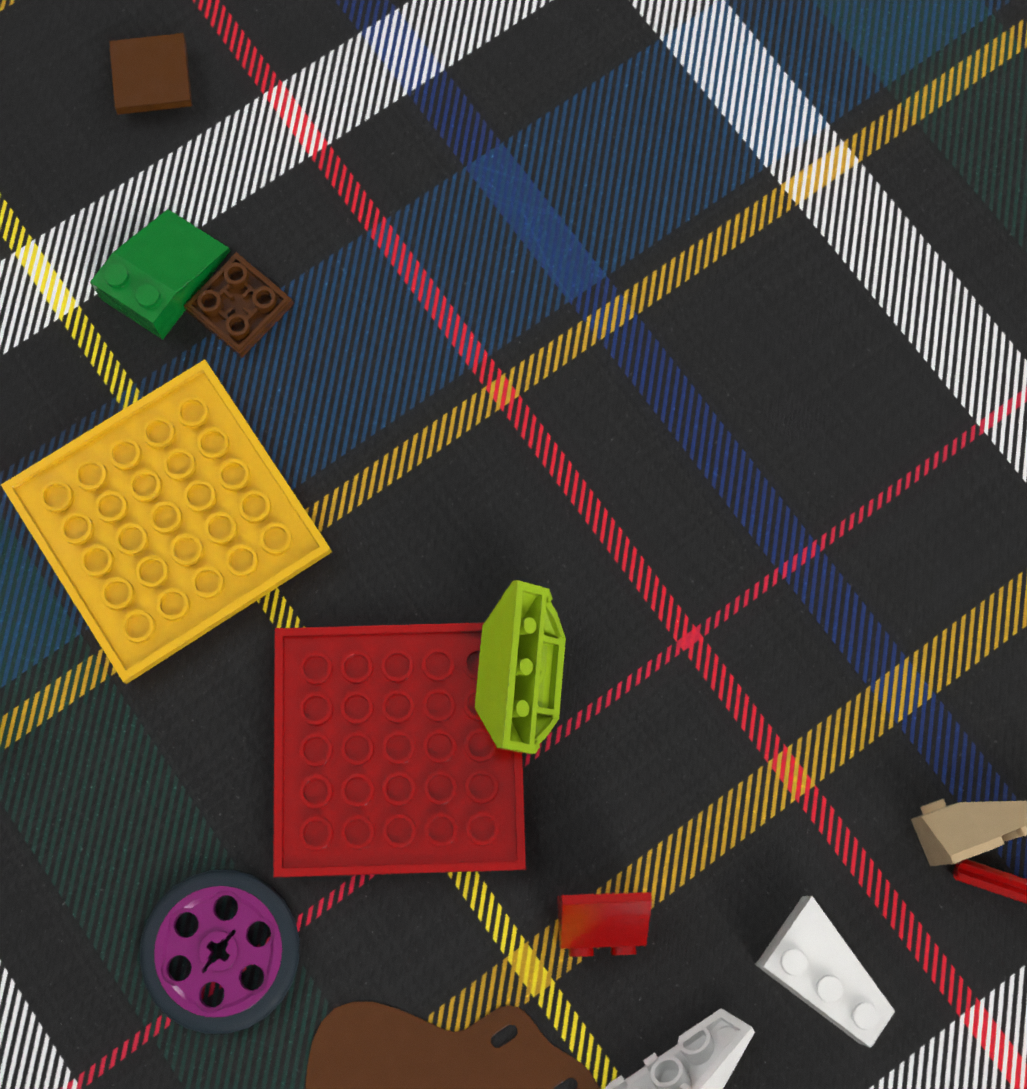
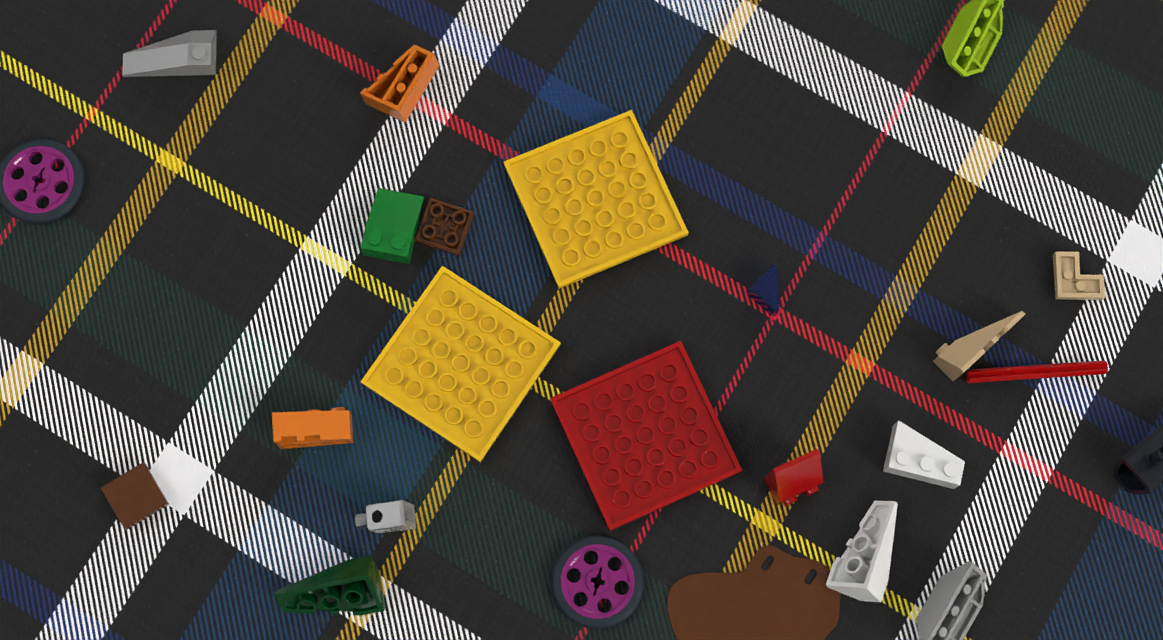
camera: 25 degrees left, 0 degrees up
(150, 73) = (332, 112): reddish brown tile -> none
(271, 70) = (403, 84): none -> orange wedge
(483, 352) = (595, 199): none -> yellow plate
(521, 668) = (695, 364): lime wedge -> none
(686, 597) = (765, 291): none -> clear blue slope

